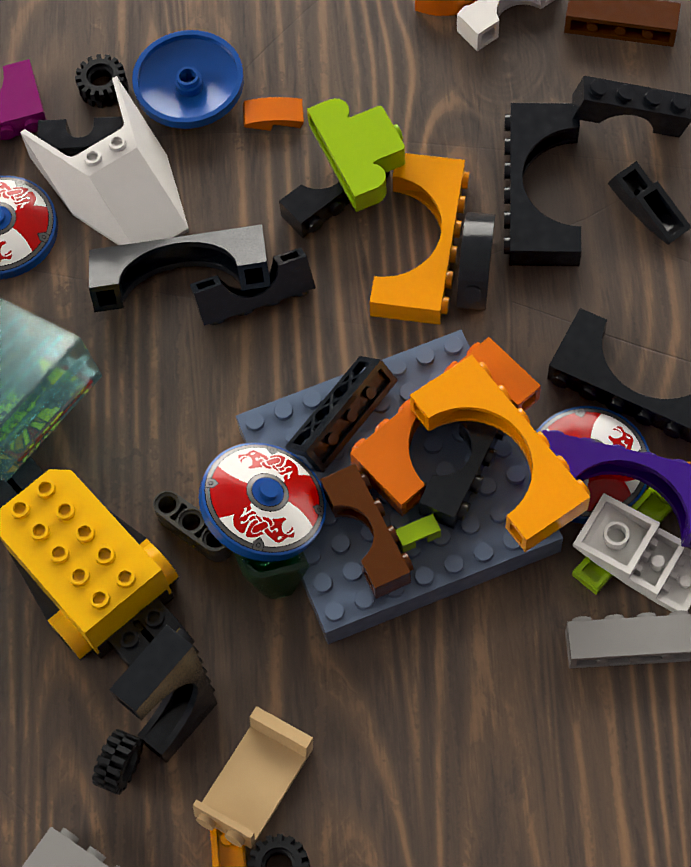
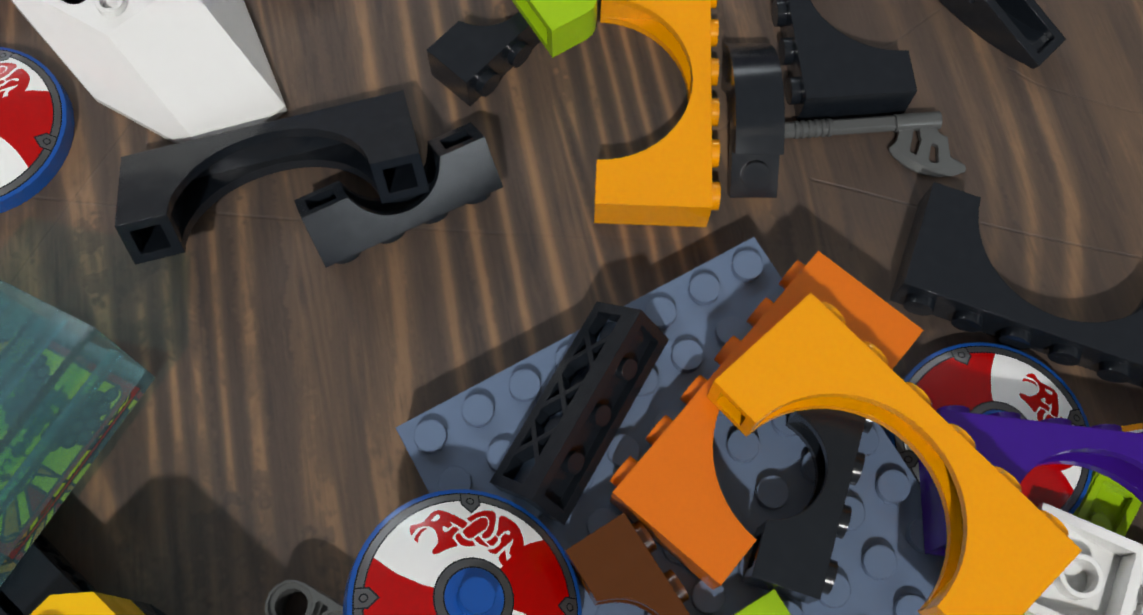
camera: 15 degrees left, 5 degrees up
(590, 274) = (904, 124): none -> dark grey piece

